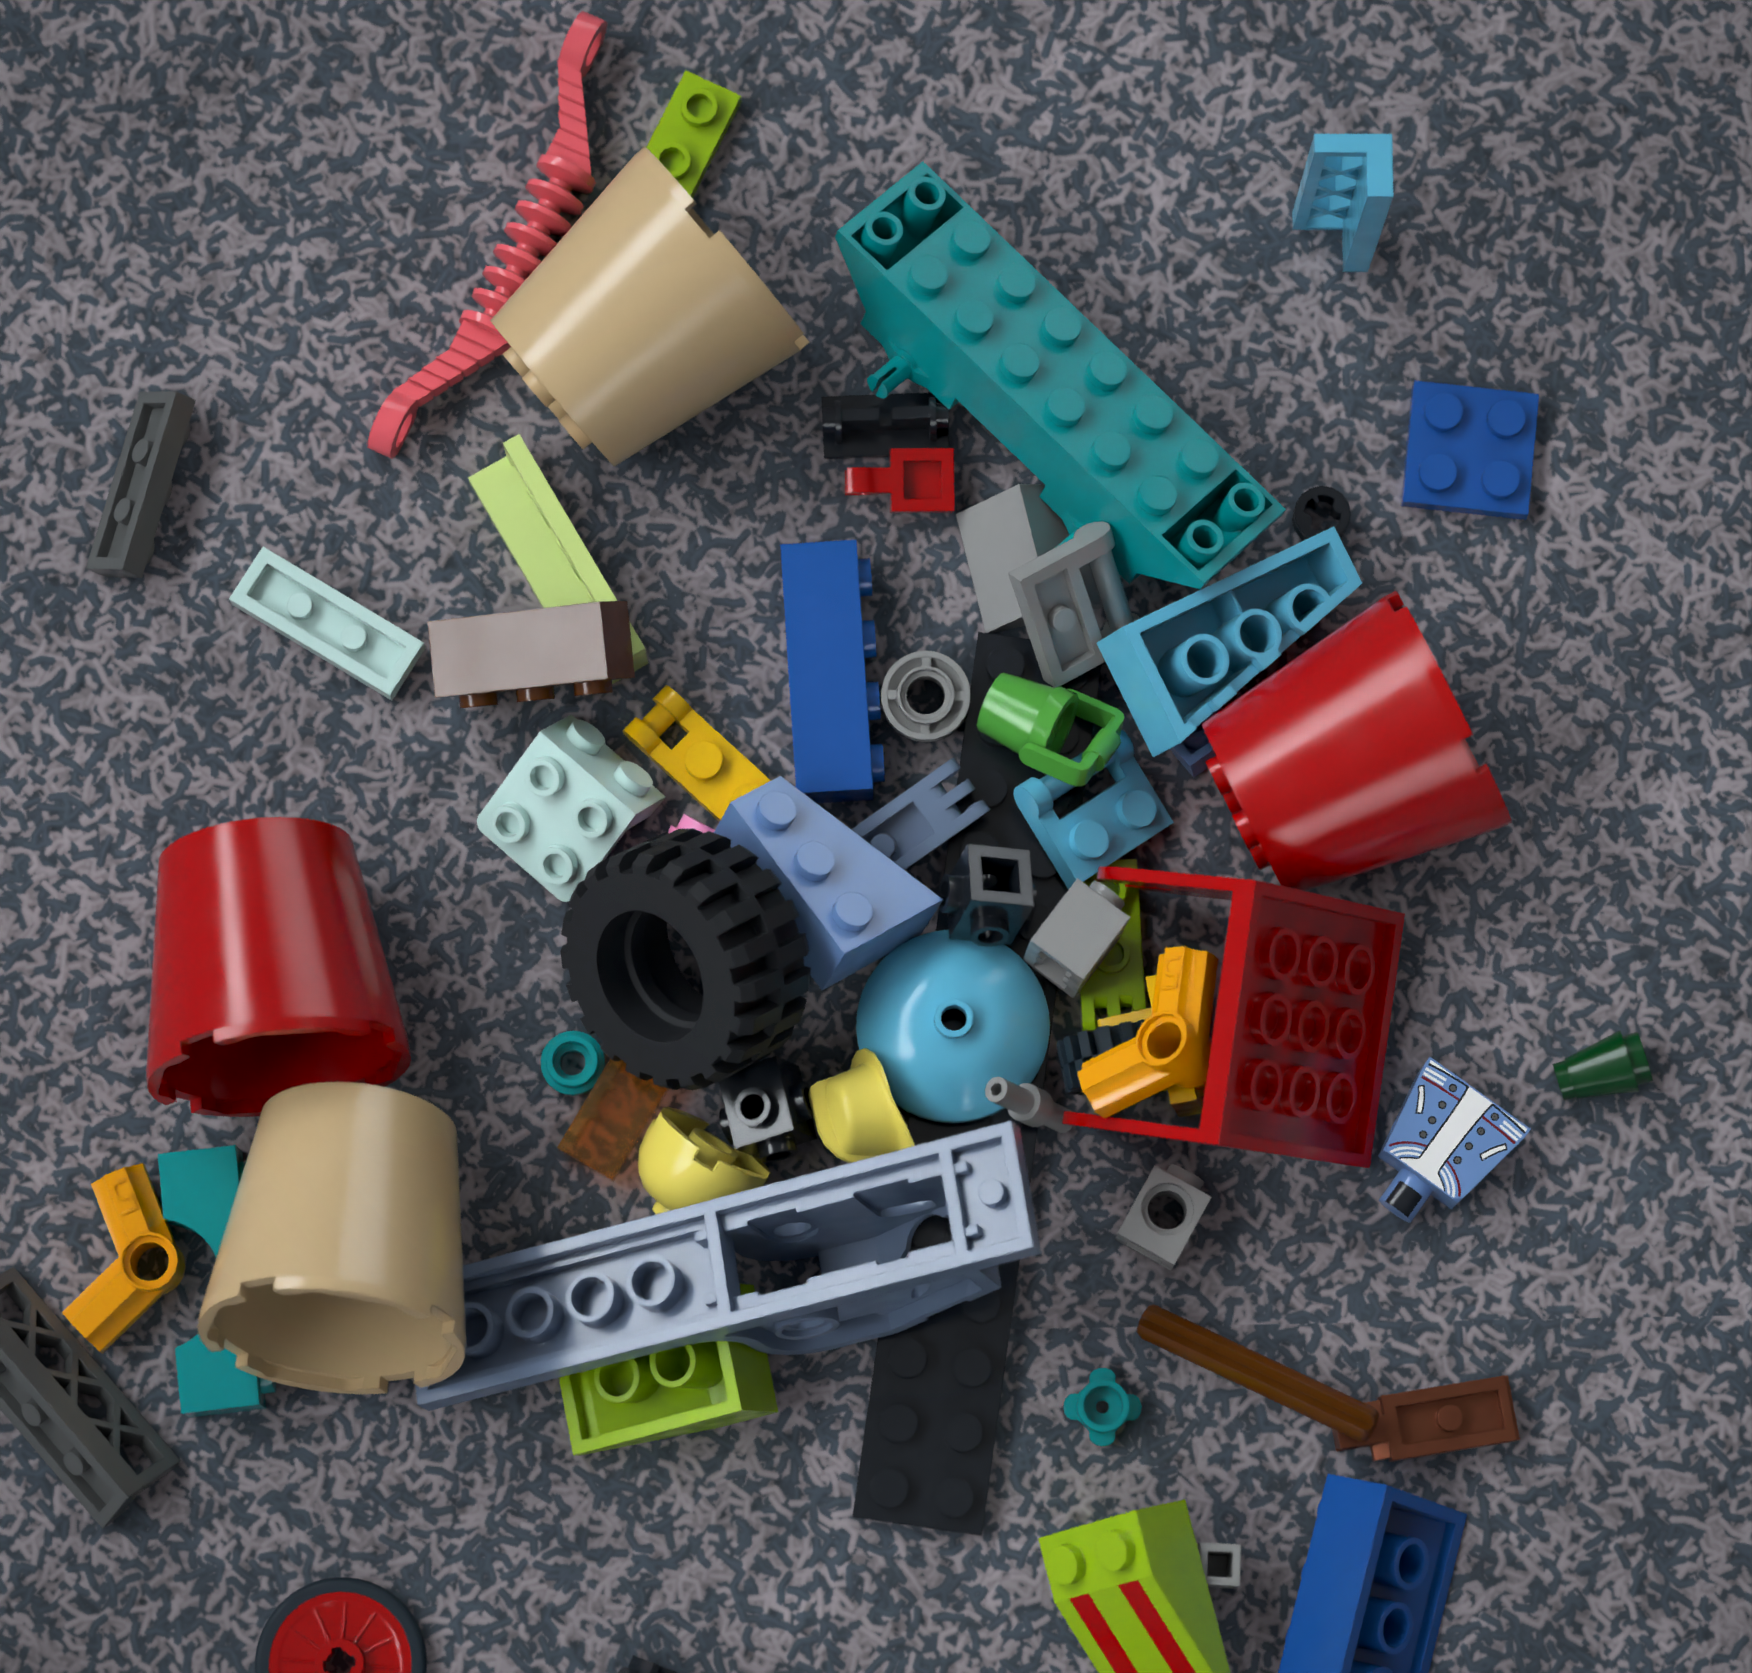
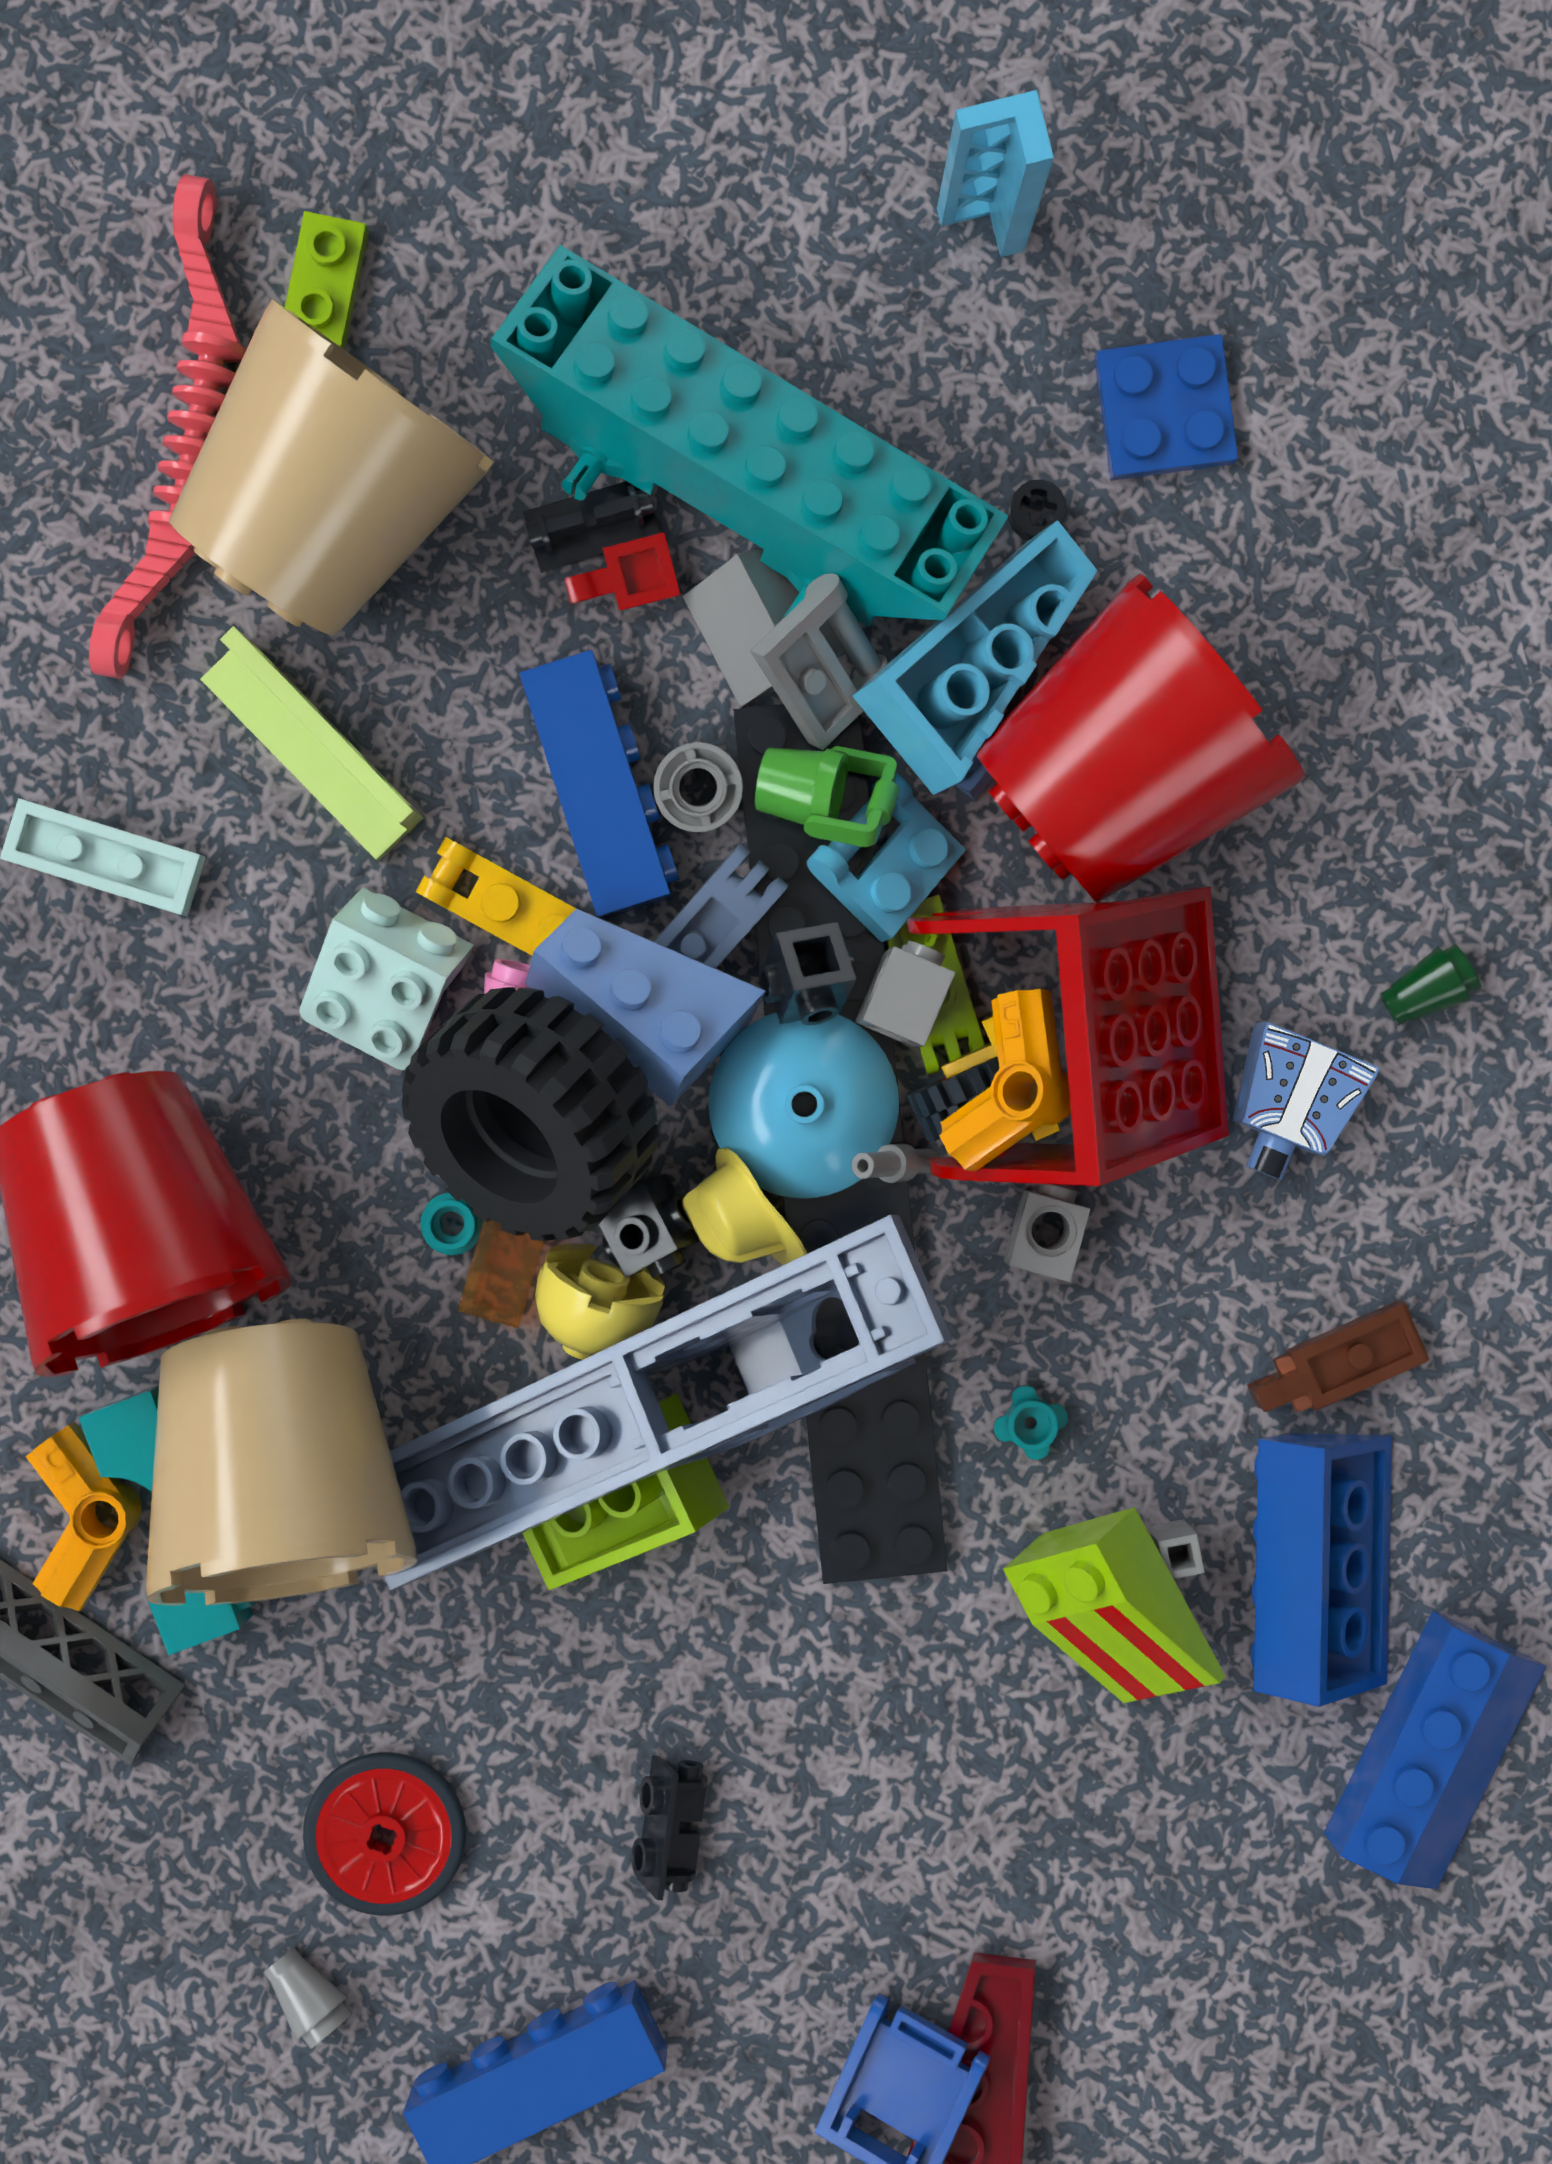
camera: 10 degrees left, 10 degrees up
(531, 652) = (304, 842): brick -> none
(1258, 1373) = (1171, 1360): reddish brown axle -> none

